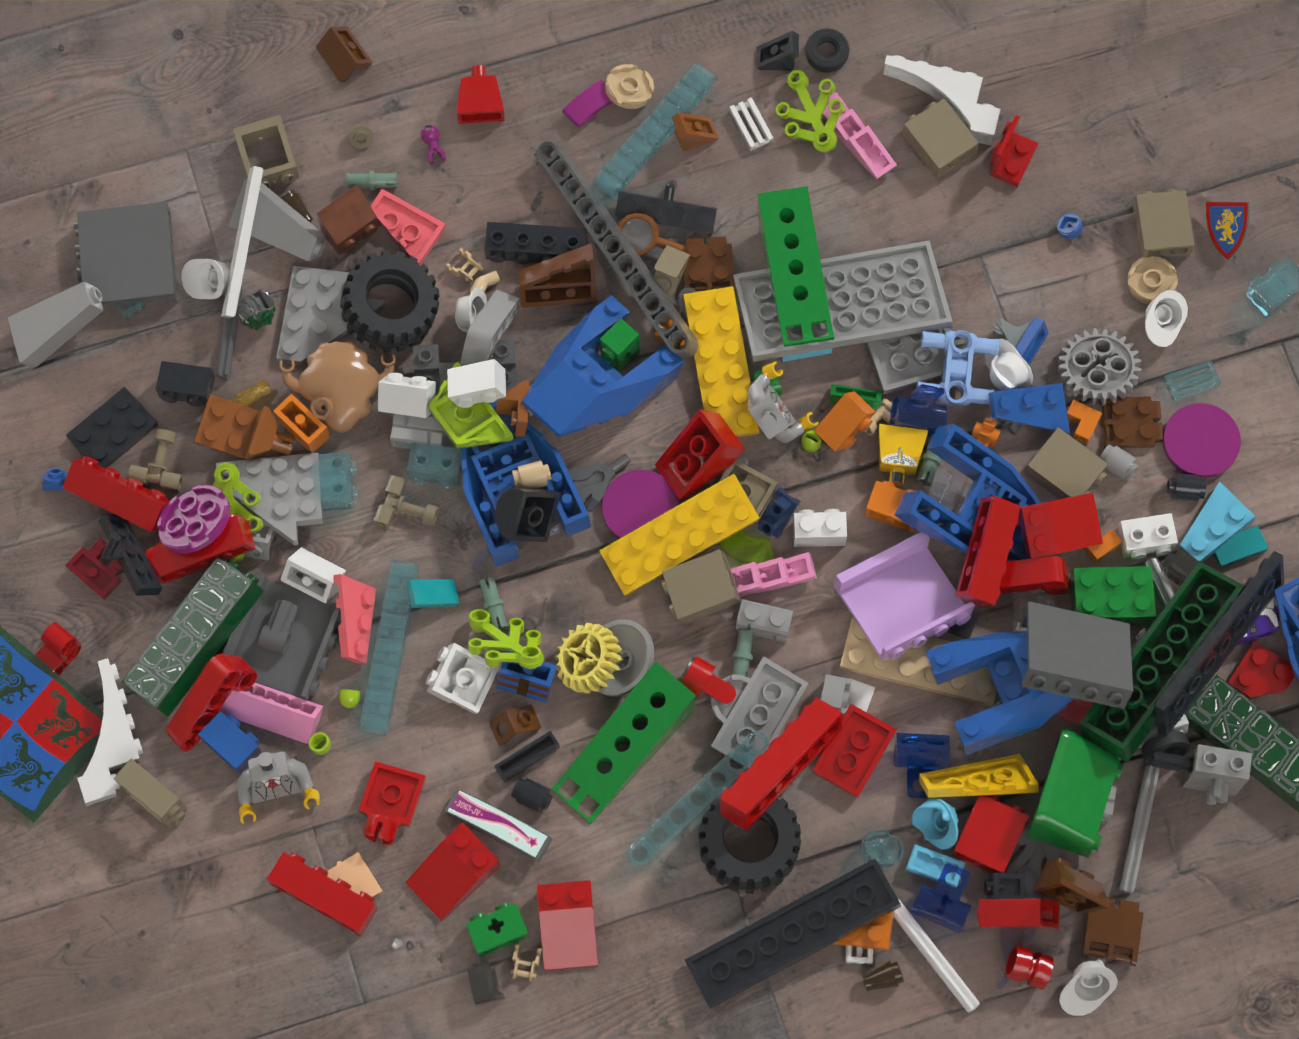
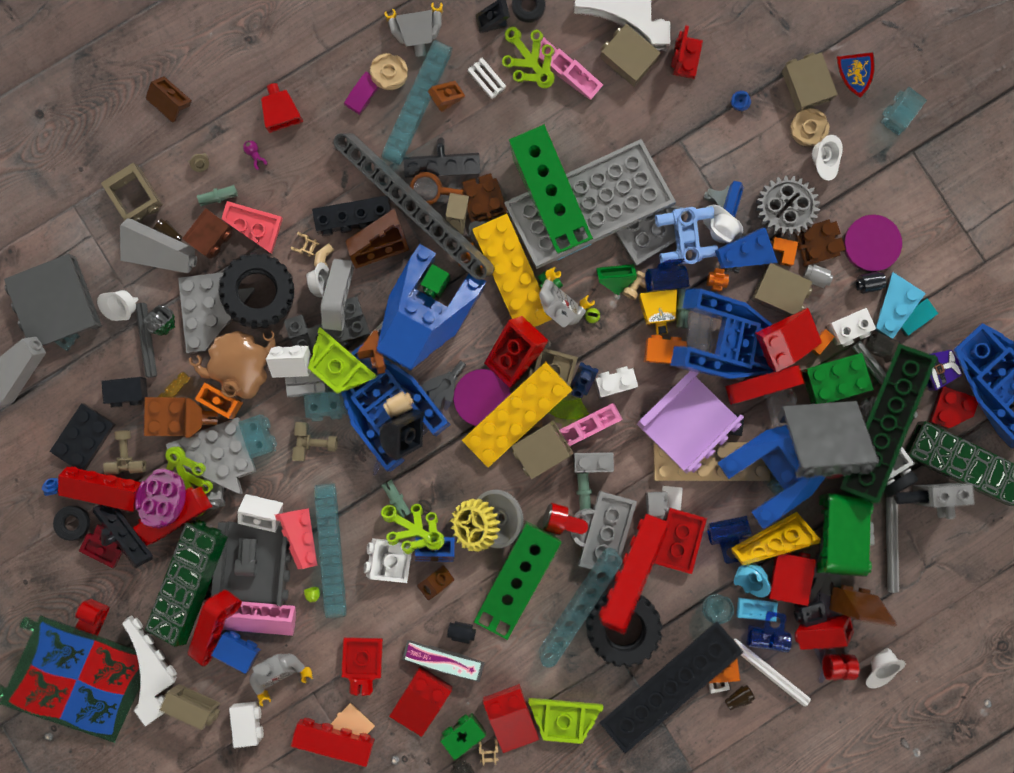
camera: 15 degrees left, 15 degrees up
(70, 545) = (59, 523): none -> black tyre
(215, 838) = (246, 724): none -> white brick
(242, 242) = (133, 274): white tile -> none
(317, 741) = (297, 632): lime hinge -> none
(432, 593) = (350, 504): teal tile -> none
(476, 383) = (338, 345): white brick -> none
(527, 756) = (450, 605): black piece -> none
(638, 944) = (564, 719): none -> lime wing
(678, 43) = (416, 28): none -> light grey torso
(845, 422) = (615, 297): orange brick -> none
(988, 551) = (744, 375): red brick -> none
(1114, 931) = (902, 616): reddish brown plate -> none
(1172, 388) = (842, 207): clear light blue tile -> none
(1219, 644) = (929, 397): black plate -> none

